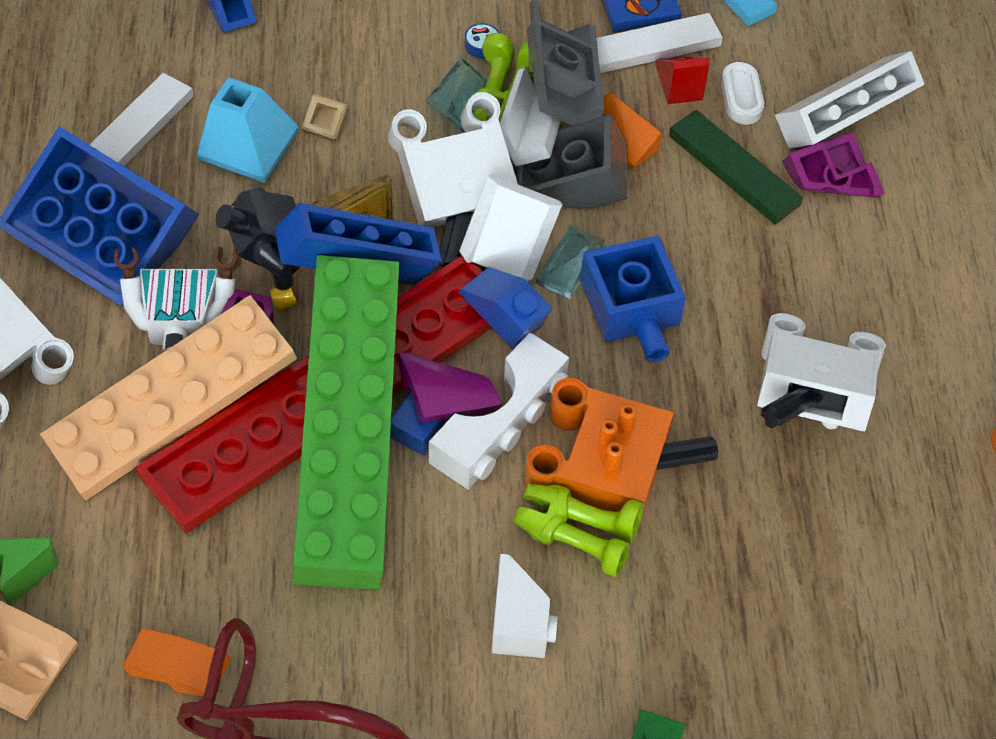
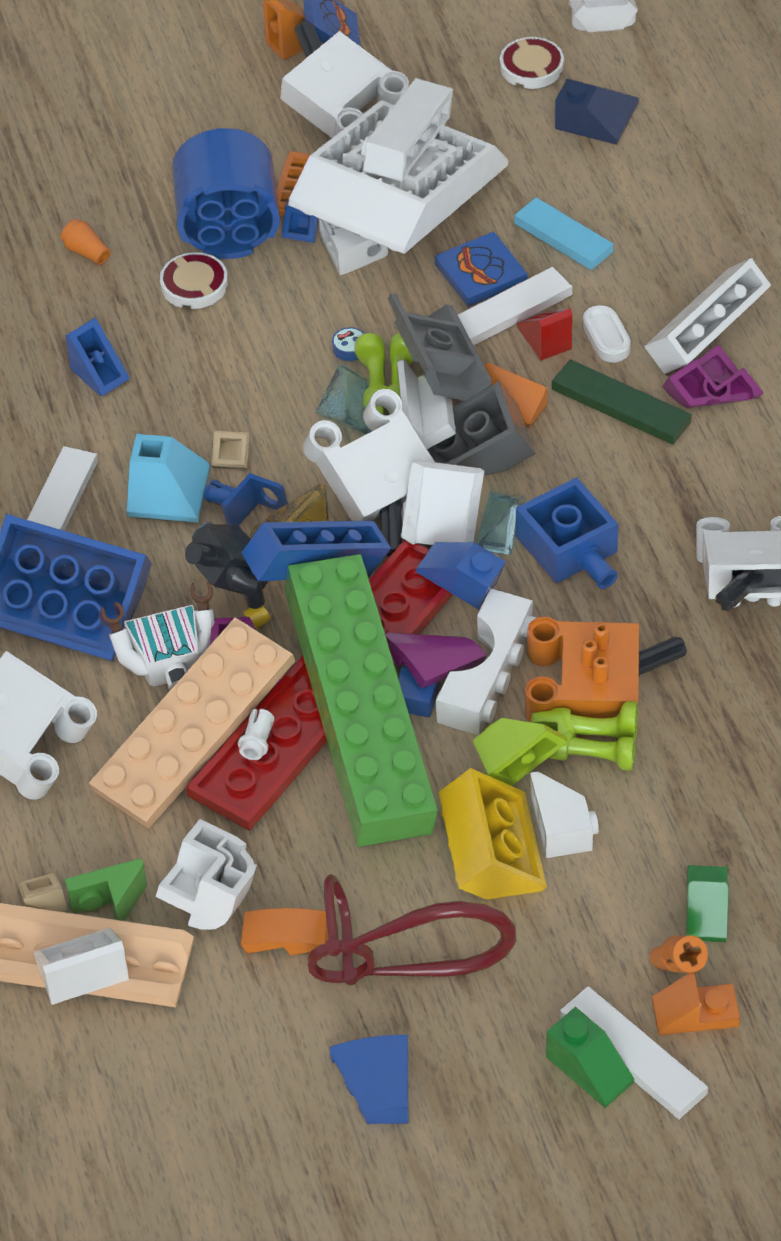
camera: 10 degrees left, 5 degrees down
(113, 579) = (209, 876): none -> white brick
(226, 430) = (253, 743): none -> white pin
(312, 172) = (240, 501): none -> blue bracket
(436, 616) = (491, 837): none -> yellow slope
(493, 521) = (516, 747): none -> lime slope

